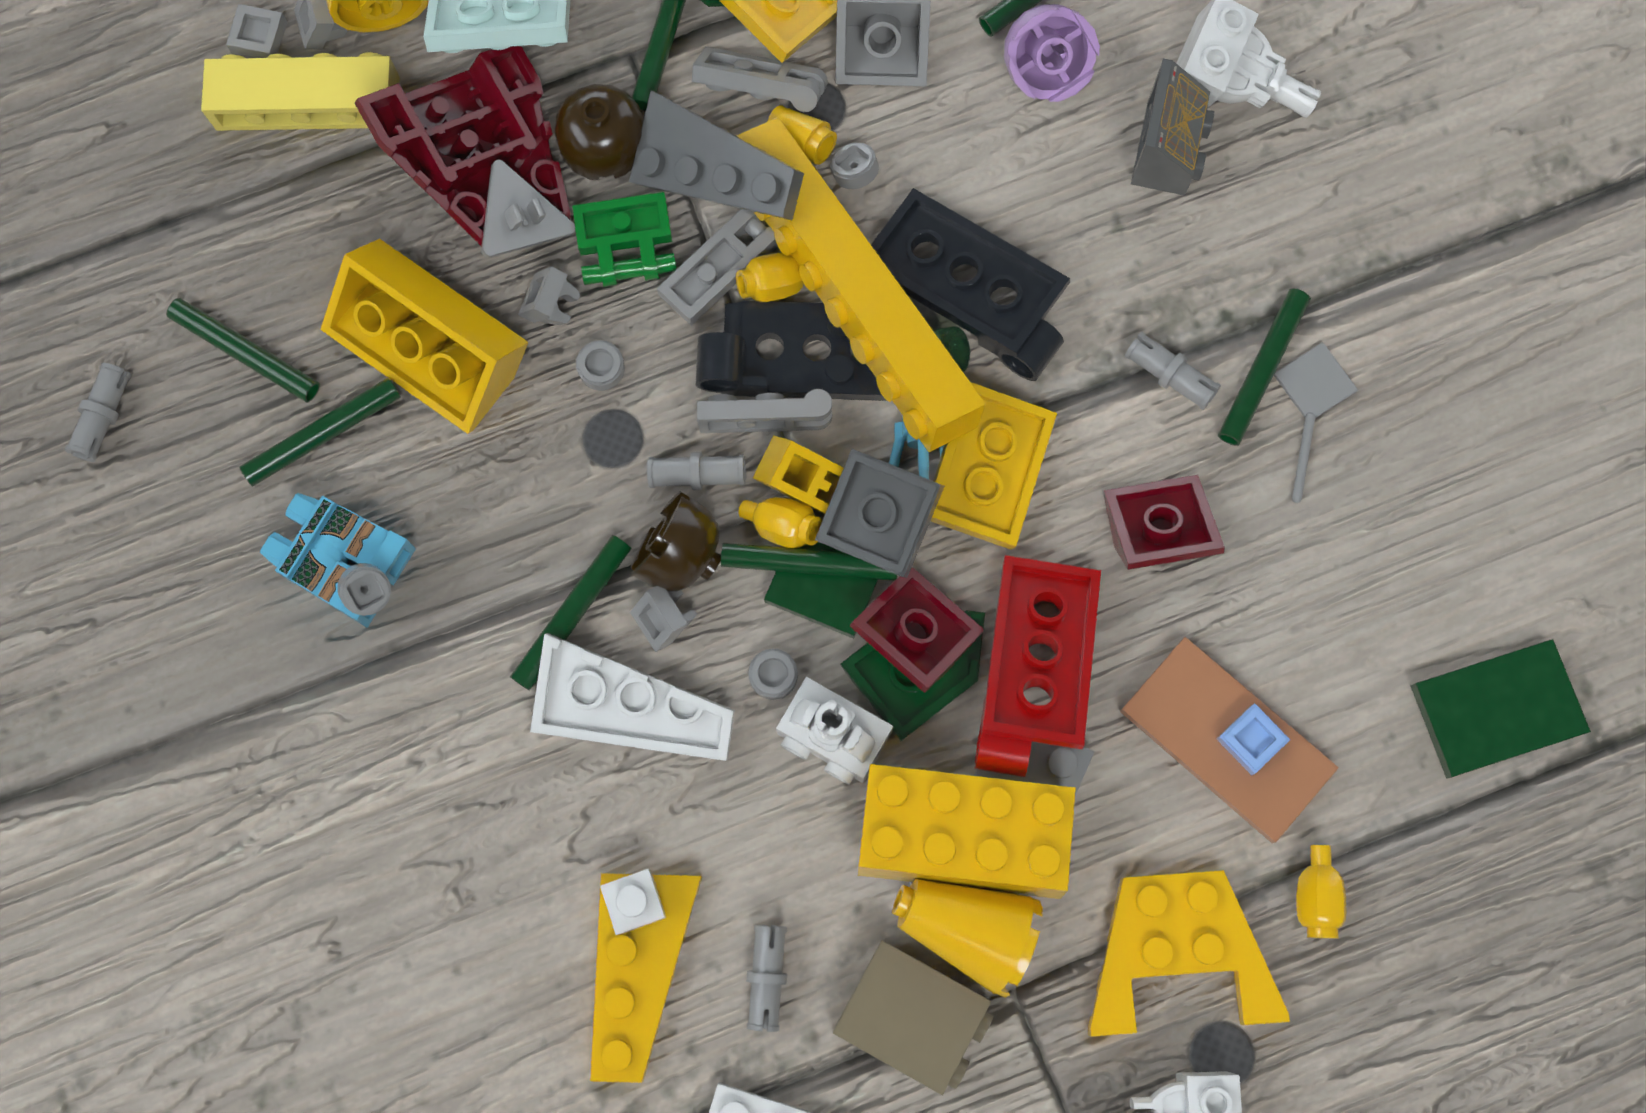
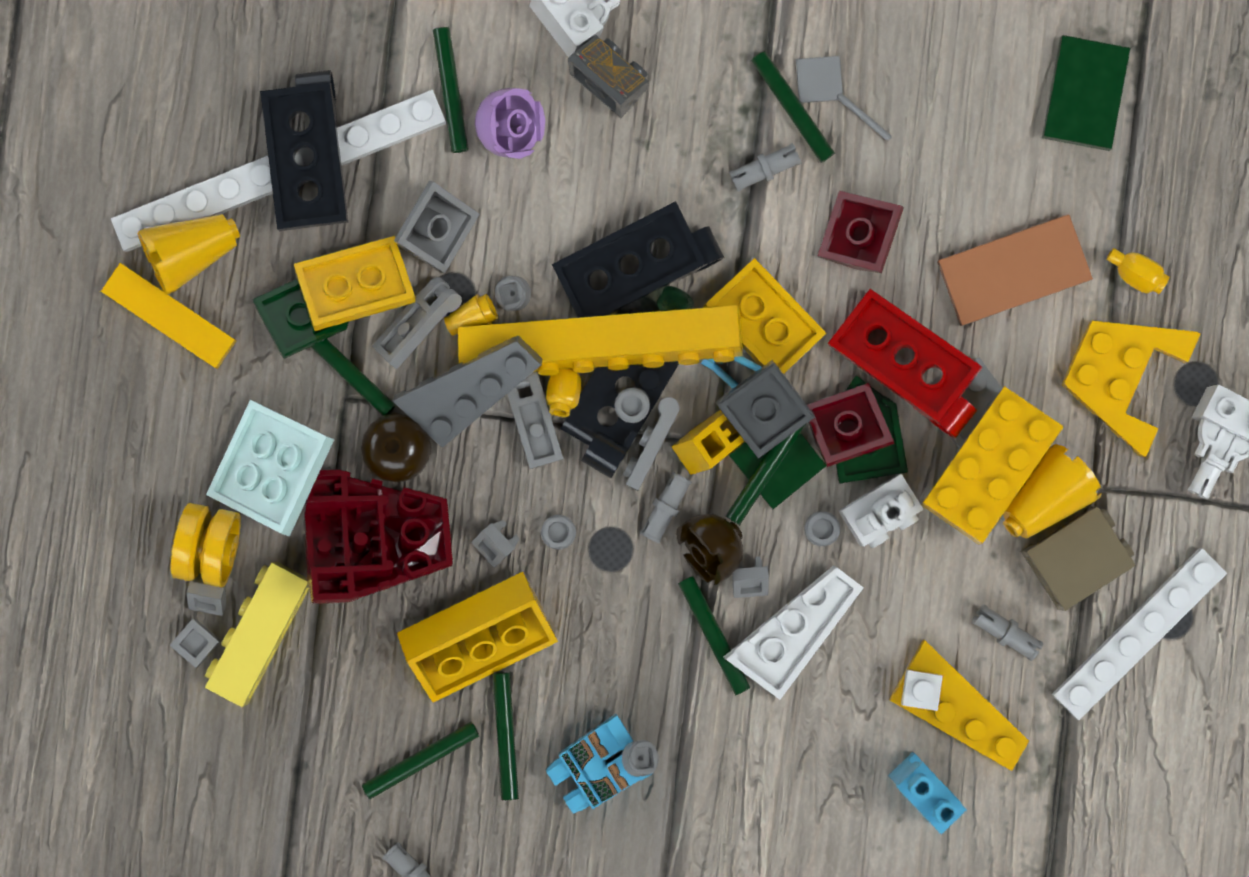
camera: 65 degrees left, 10 degrees up
(492, 988) = (927, 793): none -> medium azure hips
(518, 215) = (433, 533): light grey piece -> none
(619, 226) = (471, 467): green plate -> none
(782, 521) = (731, 471): yellow plant -> none
(798, 363) = (632, 404): none -> light grey tile
(1253, 739) = (1025, 256): light blue tile -> none

